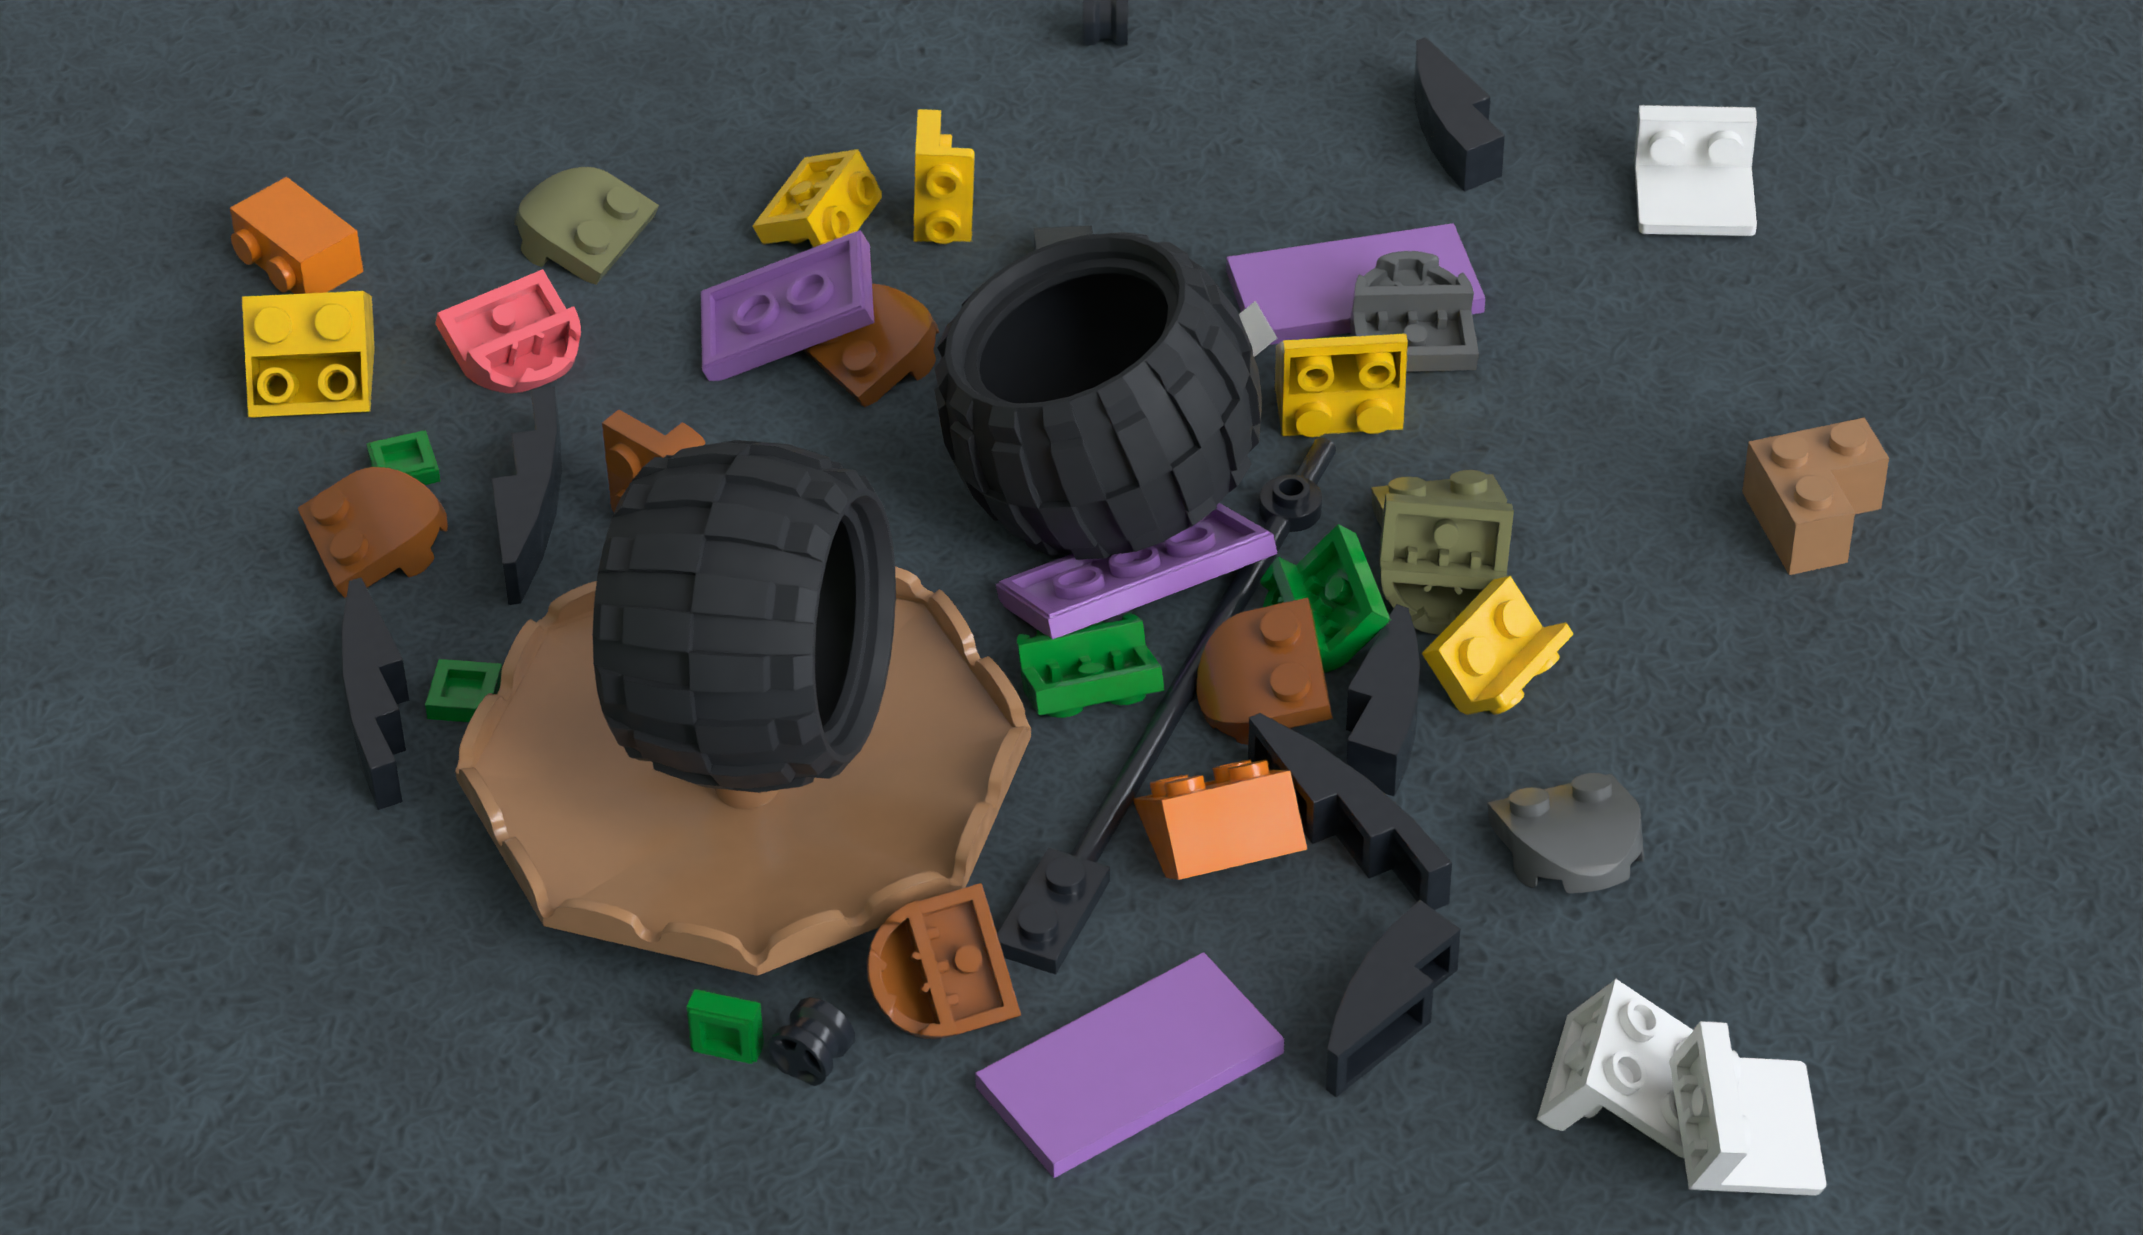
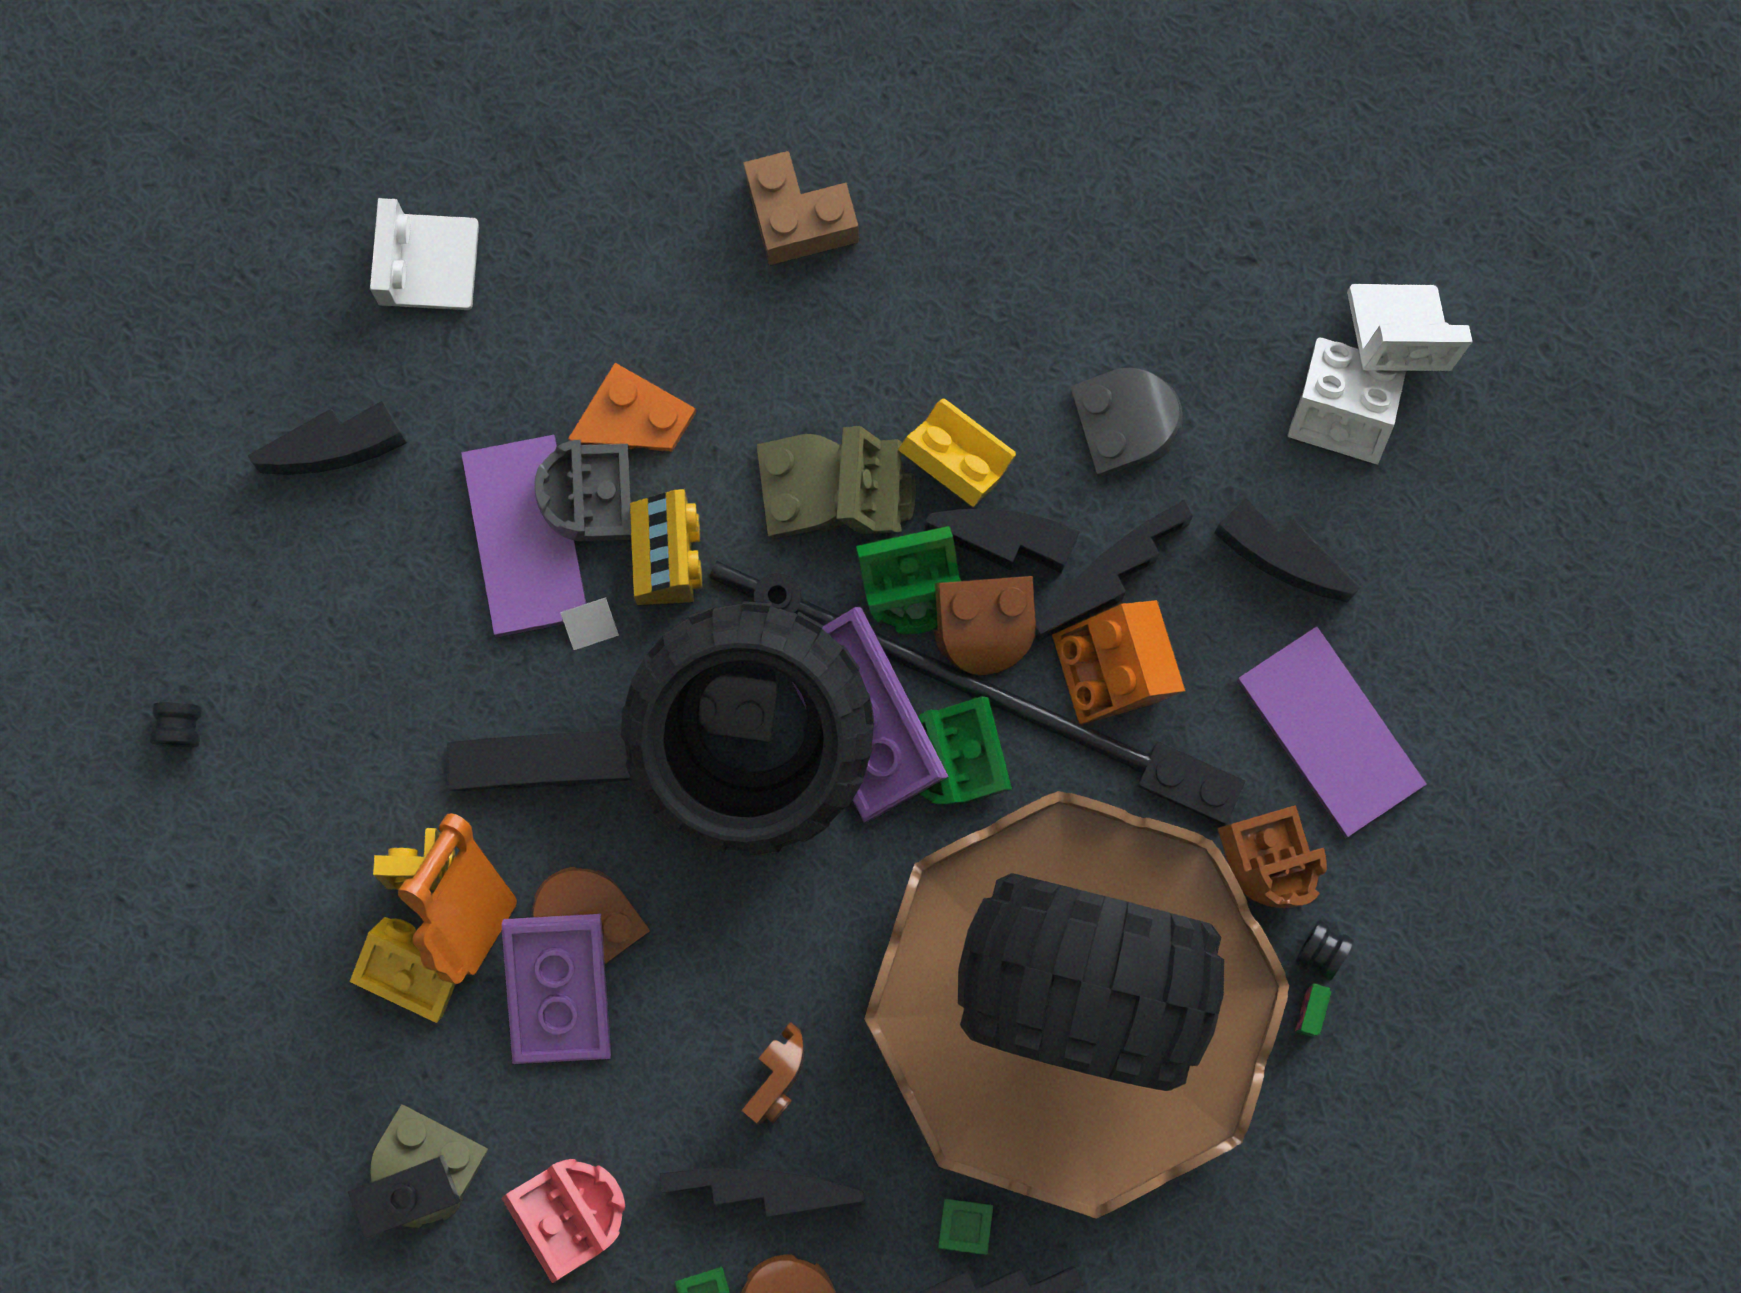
camera: 90 degrees left, 35 degrees up
(547, 185) = (404, 1196): none -> black plate
(886, 197) = (464, 909): none -> orange piece
(1522, 370) = (633, 414): none -> orange wing

